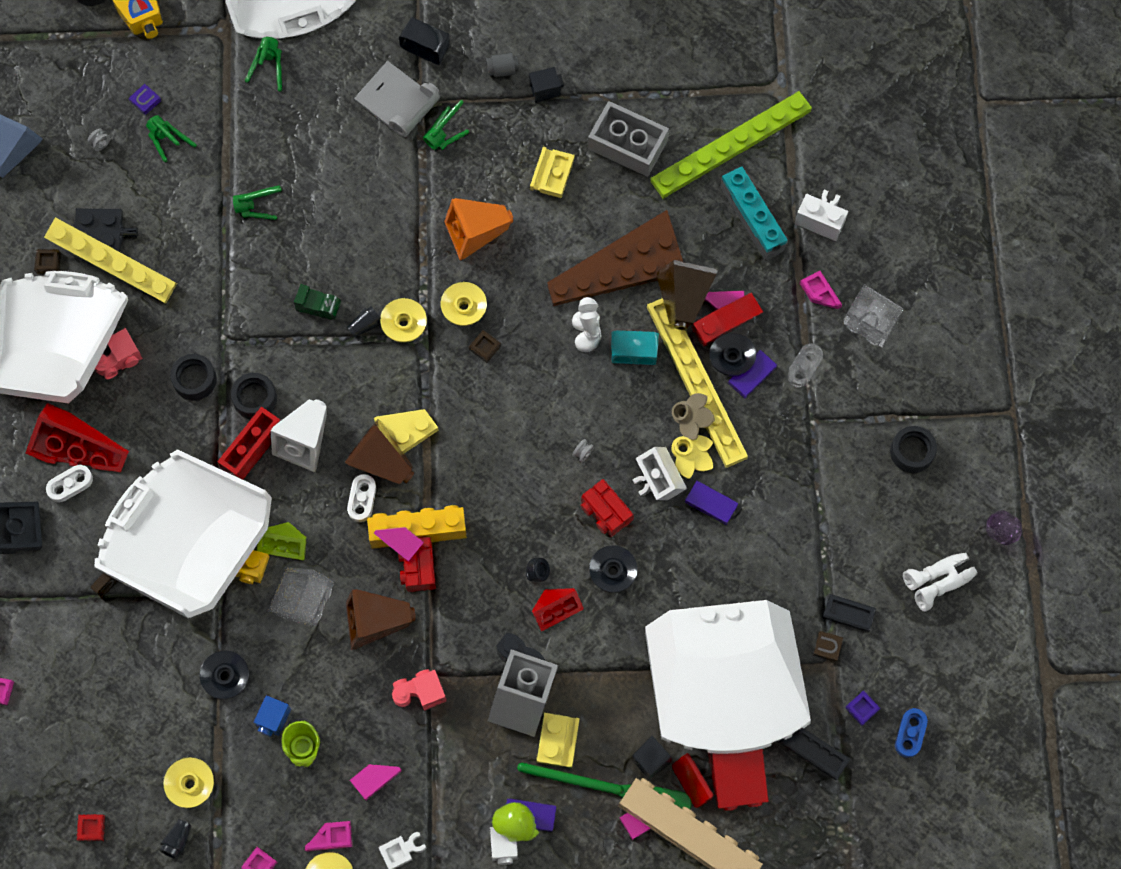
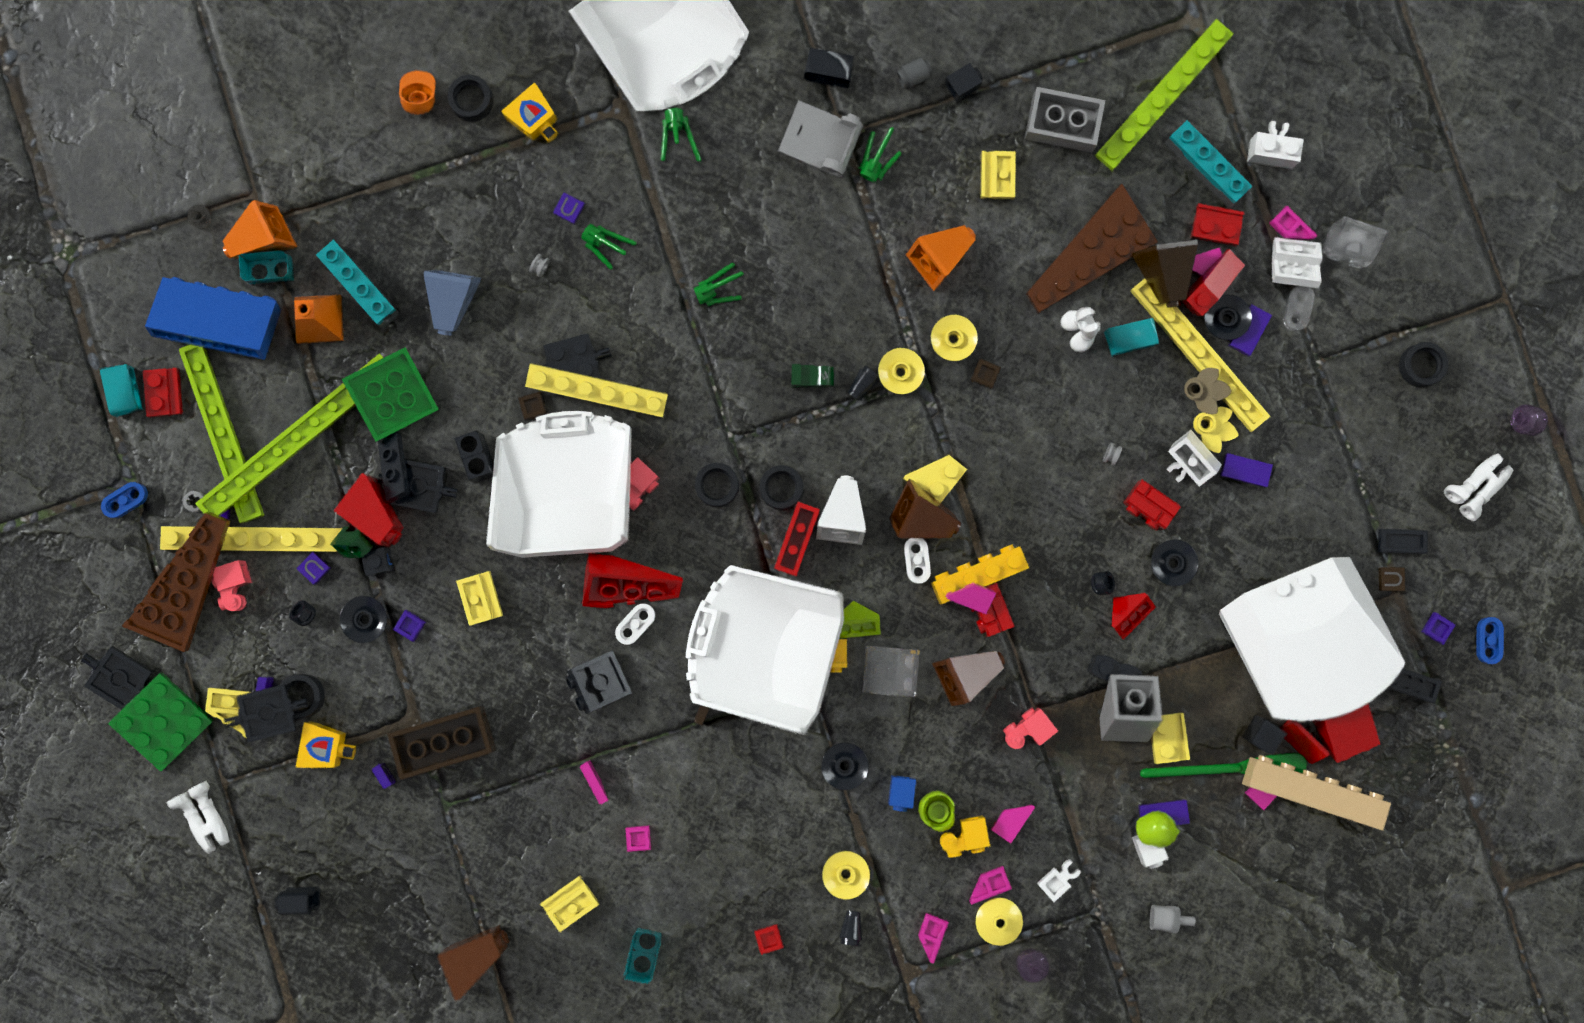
camera: 15 degrees left, 15 degrees up
(328, 781) = (972, 837): none -> yellow brick
(748, 271) = (1217, 225): none -> red plate
(814, 323) = (1296, 262): none -> white slope

